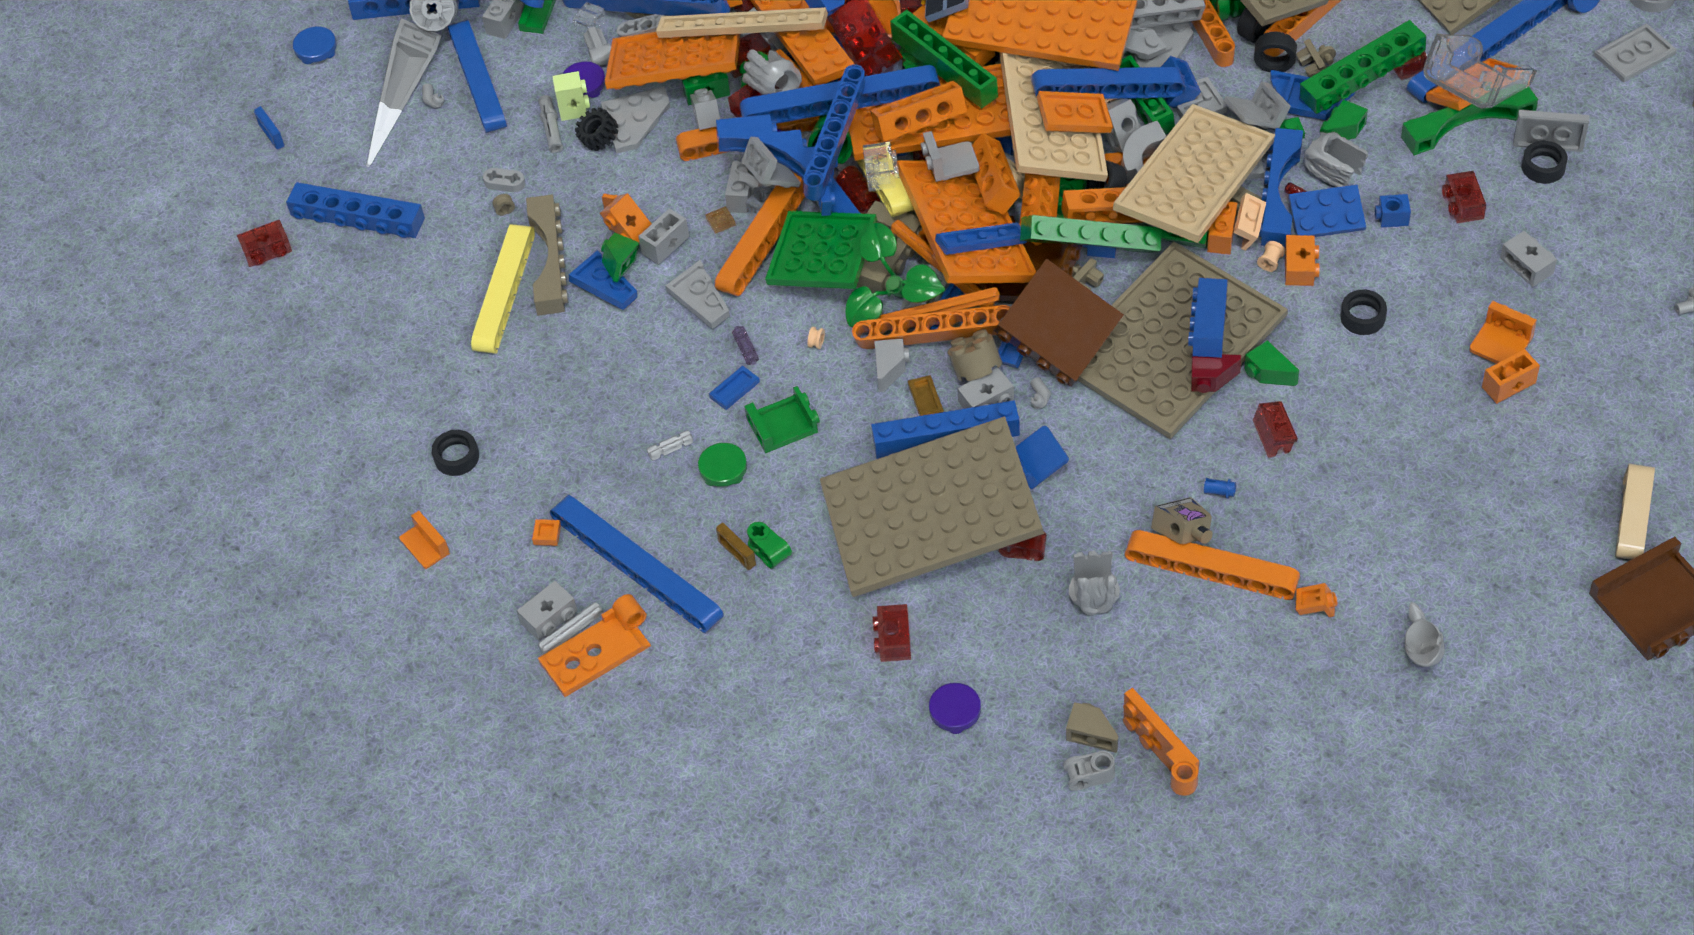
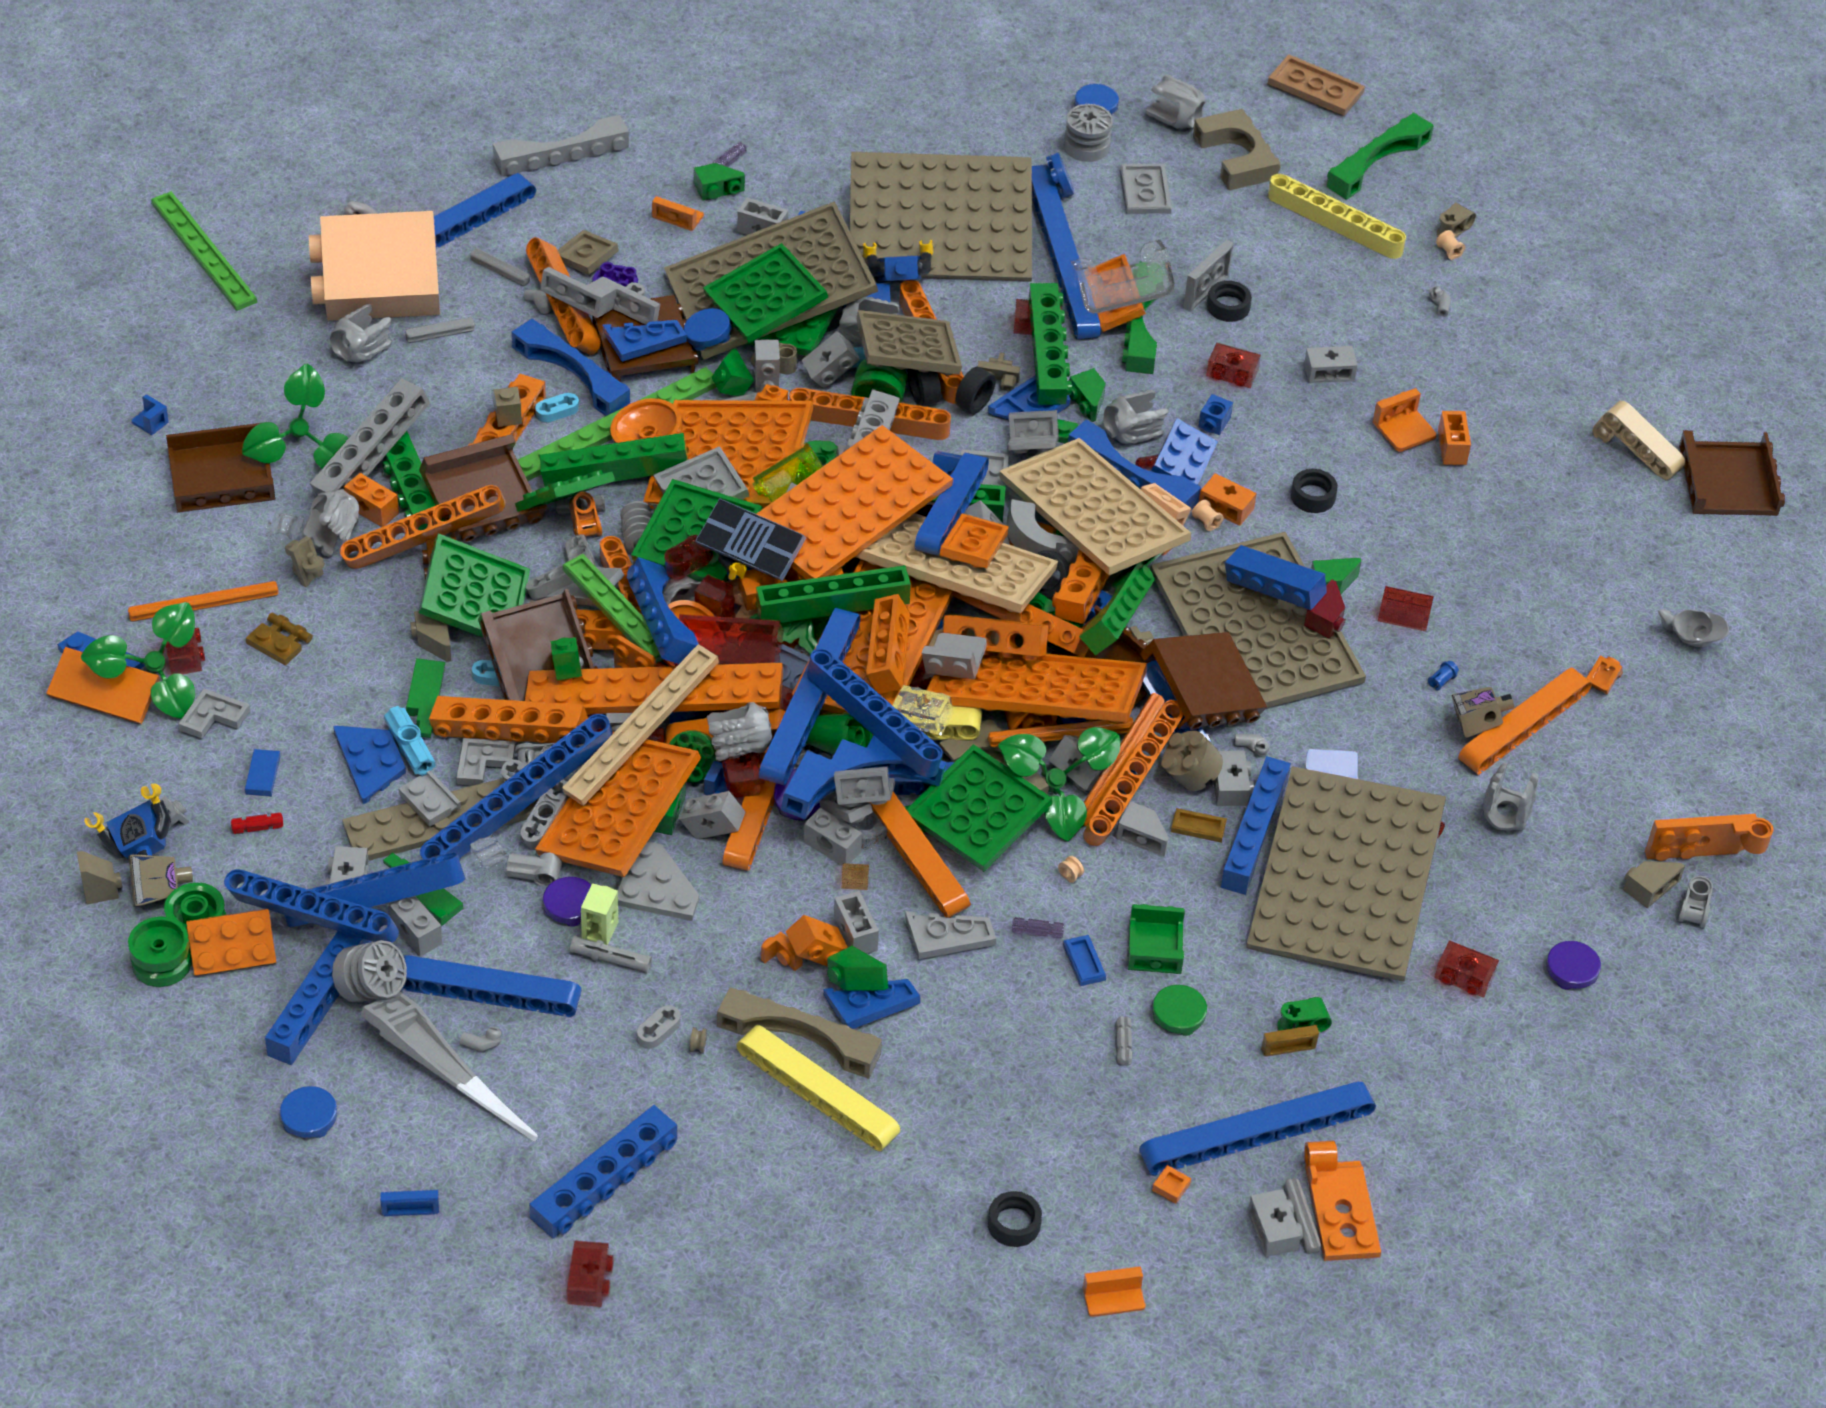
camera: 70 degrees left, 5 degrees down
(590, 122) = (658, 900): black tyre -> none
(979, 238) = (1080, 677): blue tile -> none

